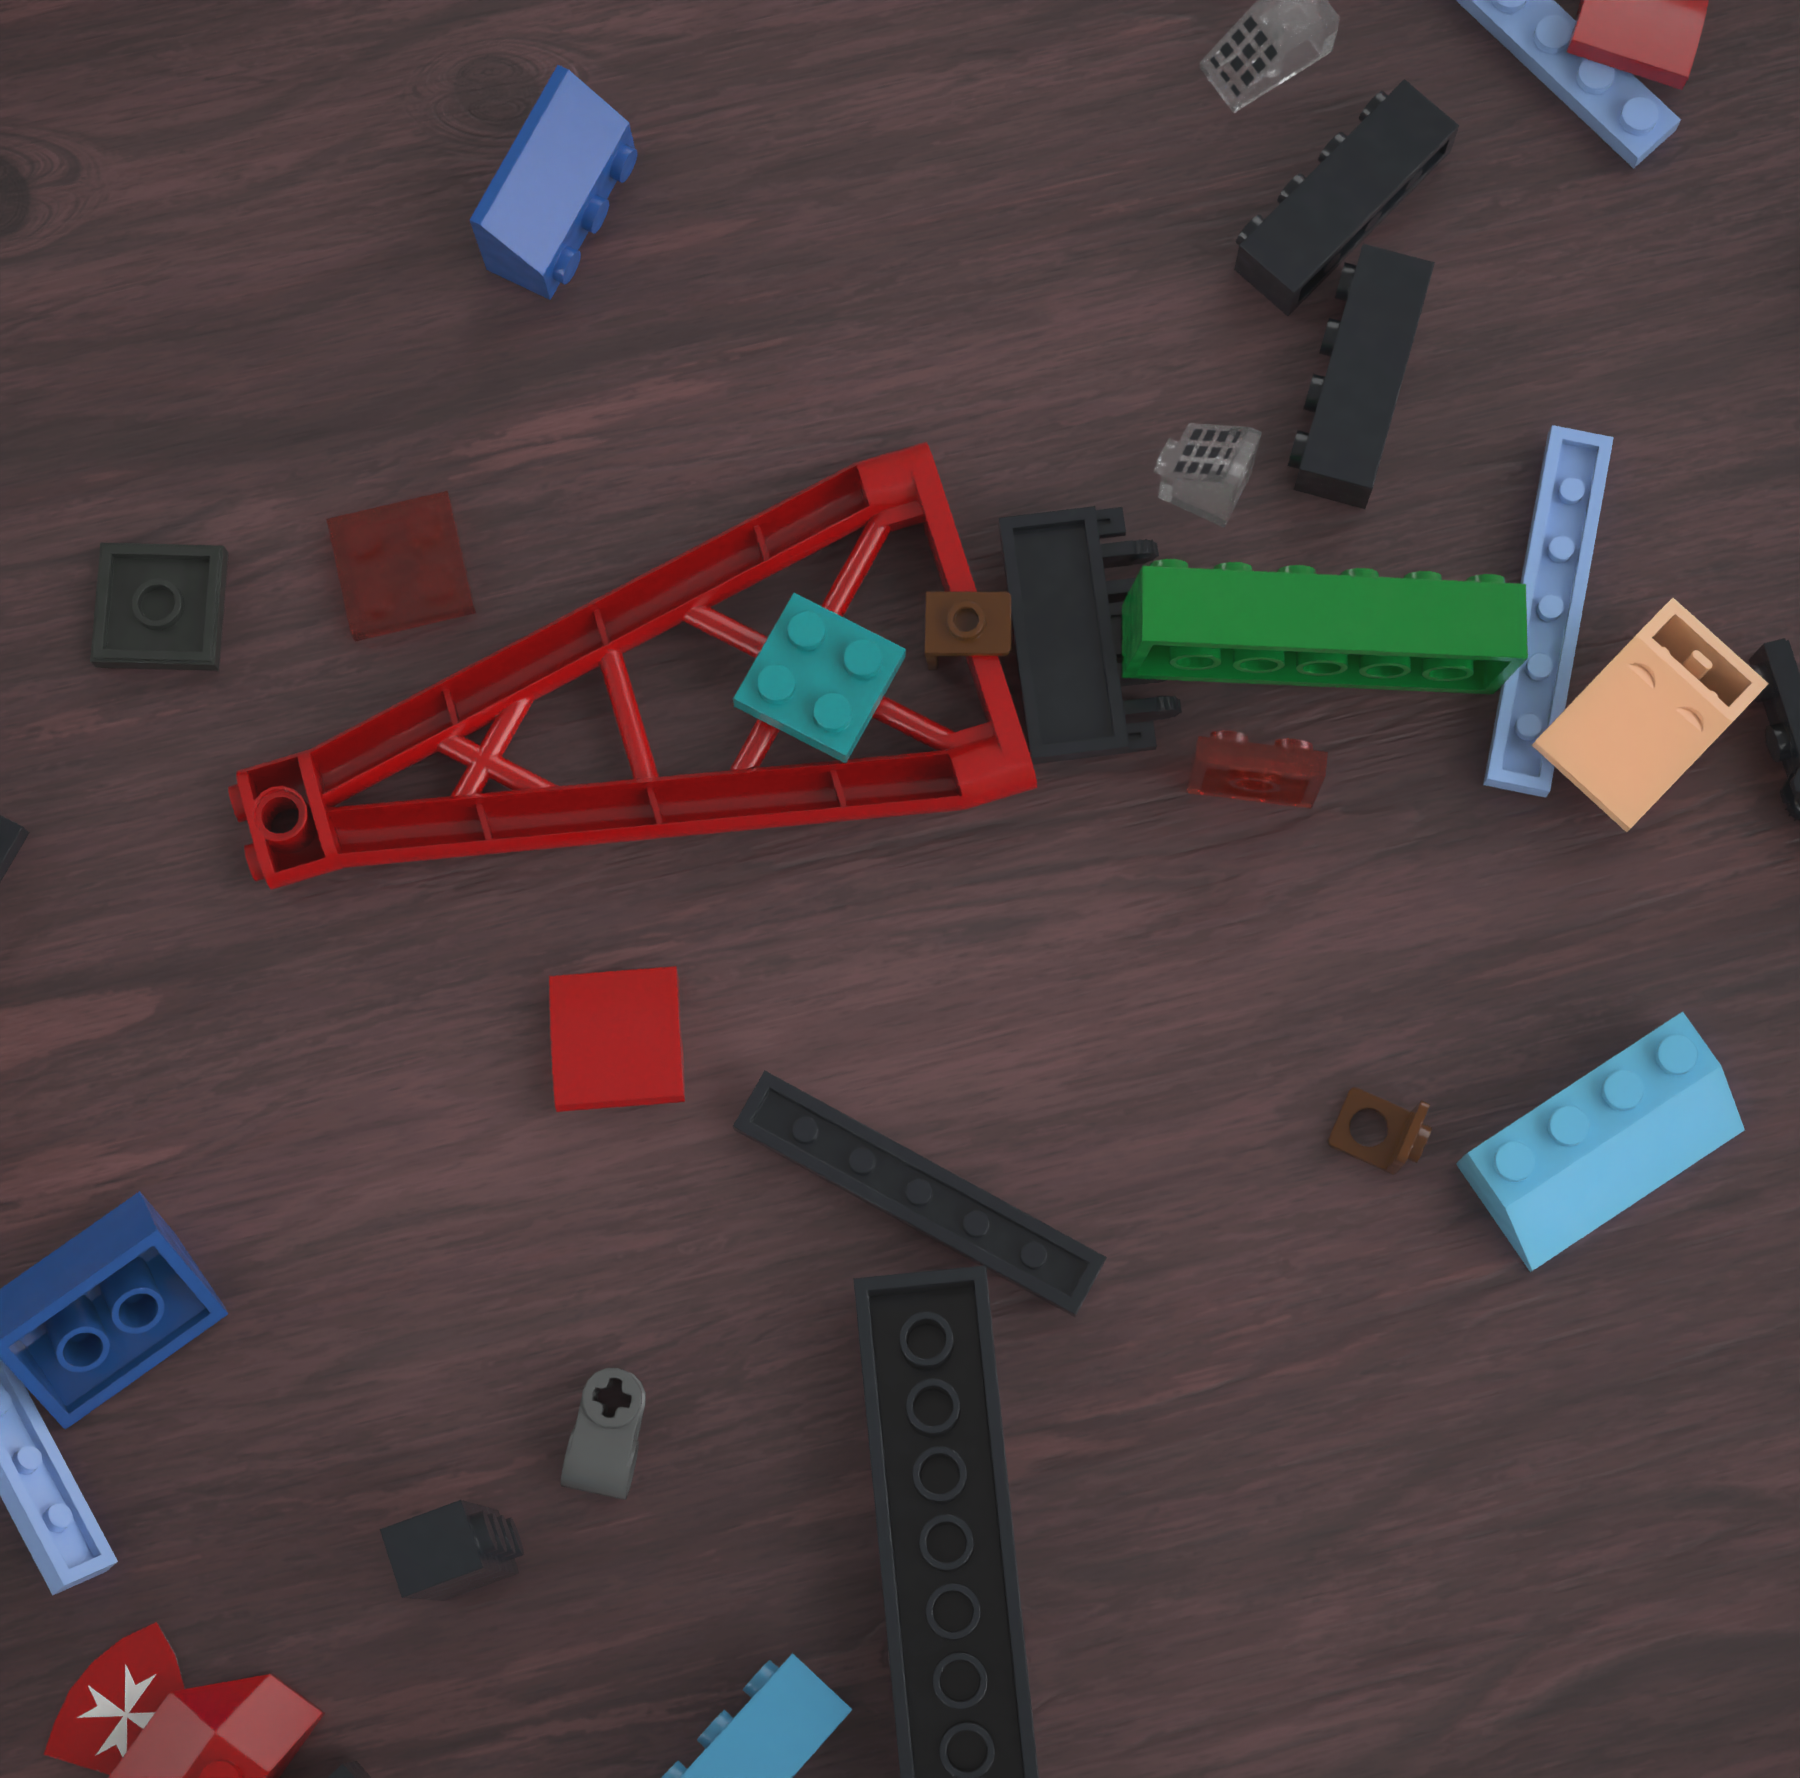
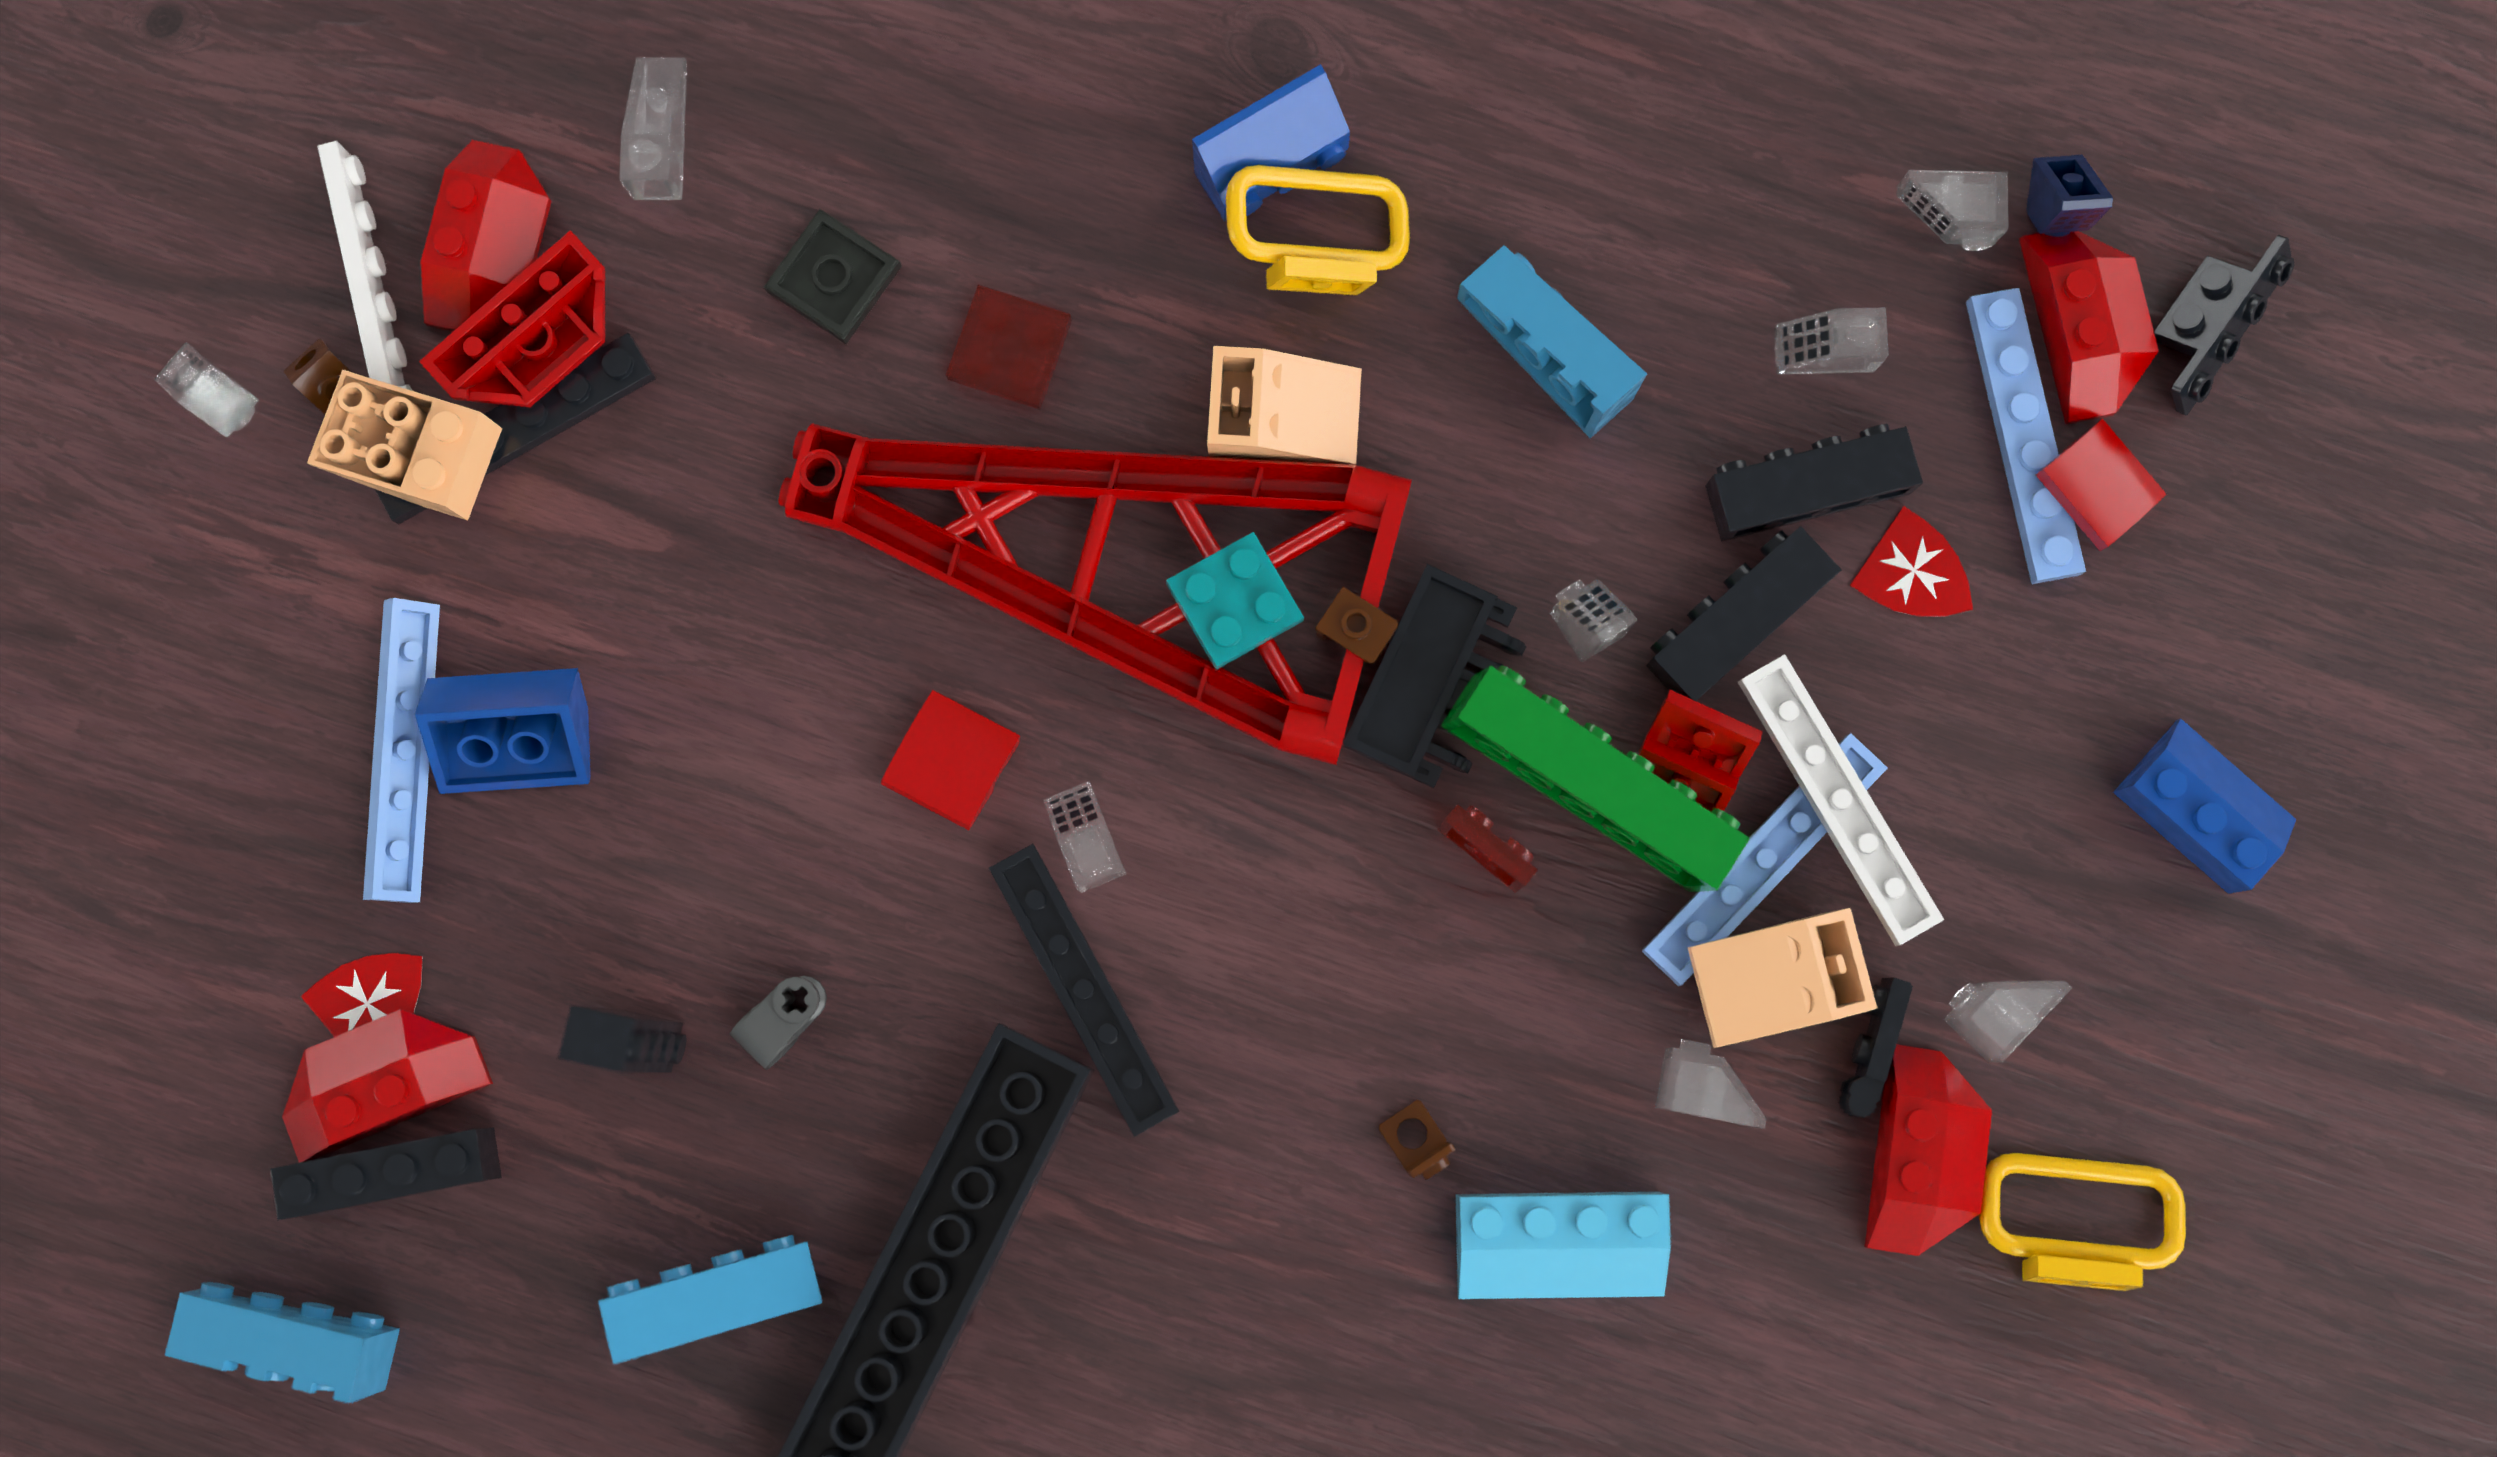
camera: 30 degrees right, 5 degrees up
(679, 285) = (1316, 267): none -> yellow bar
(737, 449) = (1282, 407): none -> light nougat slope
(817, 1030) = (1084, 837): none -> clear slope
(981, 212) = (1551, 340): none -> dark azure wedge
(1408, 528) = (1699, 749): none -> red slope
(1506, 226) = (1915, 571): none -> red sticker
(1589, 497) = (1840, 801): none -> white plate
(1644, 882) = (1705, 1087): none -> clear slope

